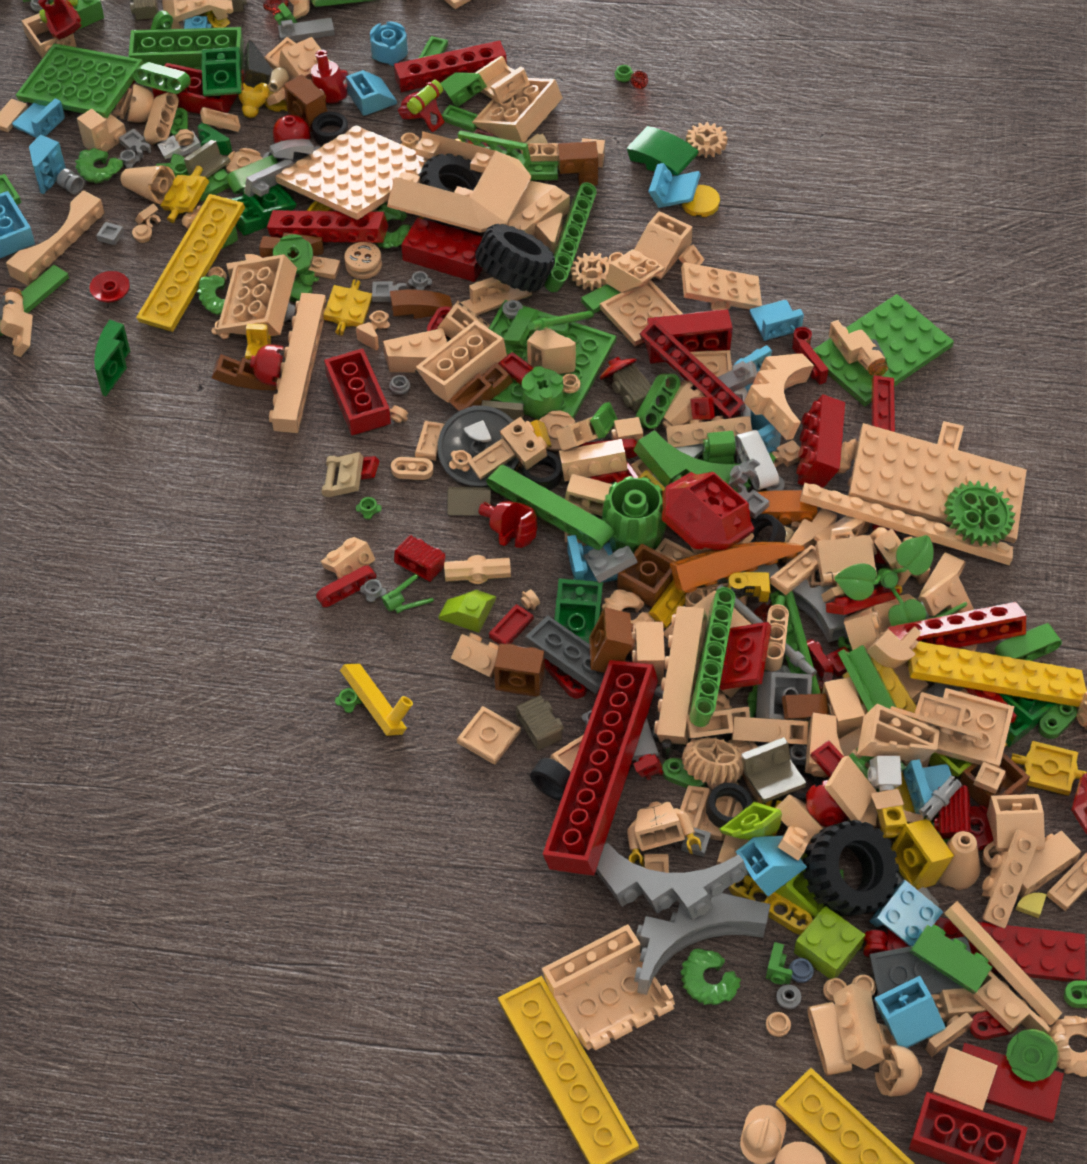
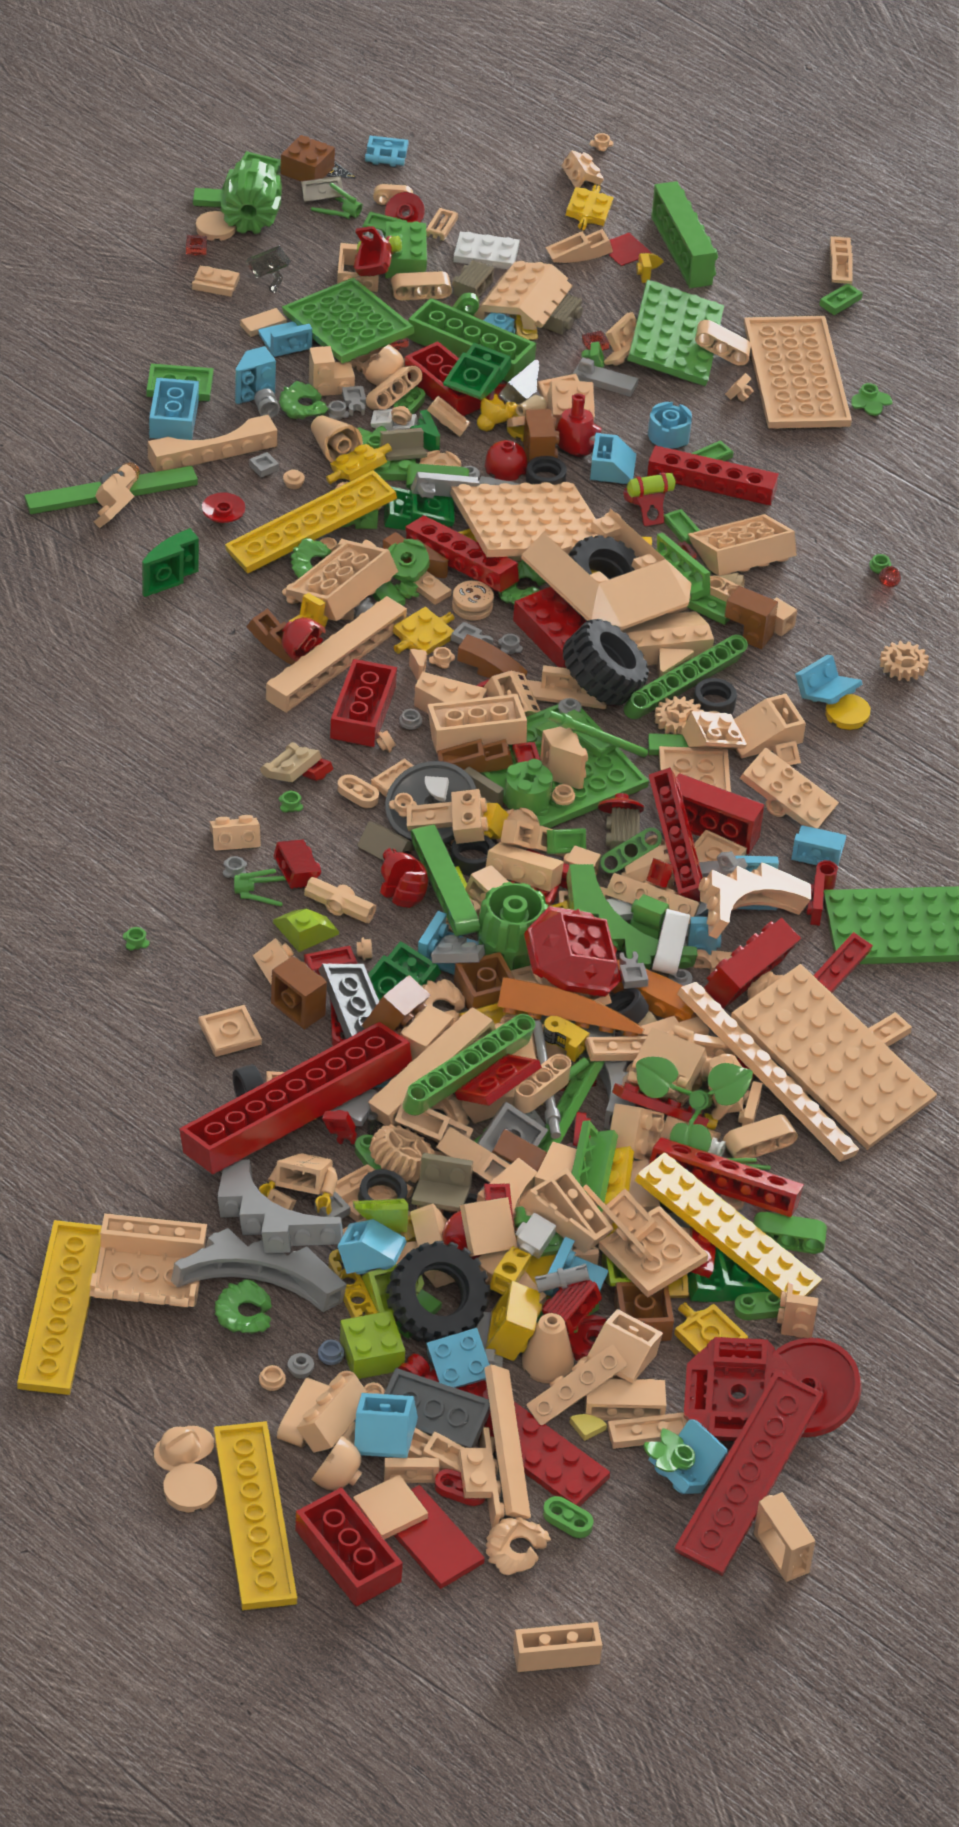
camera: 30 degrees right, 10 degrees down
(108, 24) = (421, 285): none -> light nougat beam
(147, 215) = (310, 464): light nougat tile -> none
(169, 79) = (417, 350): bright green beam -> none
(286, 148) = (483, 469): light grey slope -> none
(345, 586) = (205, 845): red beam -> none
(387, 717) = (156, 961): yellow piece -> none
(463, 86) = (703, 498): bright green slope -> none
(502, 80) = (746, 508): light nougat panel -> none
(539, 722) = (281, 1044): dark tan brick -> none
(603, 231) = (719, 687): none -> black tyre
(657, 147) = (849, 646): green slope -> none
(741, 472) = (644, 942): light grey plate -> none
(776, 970) = (311, 1334): bright green bracket -> none
(794, 842) = (400, 1240): light nougat plate -> none
(859, 347) = (870, 909): light nougat plate -> none
(887, 798) = (515, 1253): light nougat sticker -> none
(892, 651) = (634, 1148): light nougat brick -> none
(945, 594) = (746, 1142): light nougat plate -> none
(951, 958) = (459, 1406): bright green brick -> none
(989, 777) = (631, 1296): light nougat plate -> none
(990, 513) = (824, 1084): bright green gear -> none
(1032, 1055) = (464, 1520): bright green tile -> none

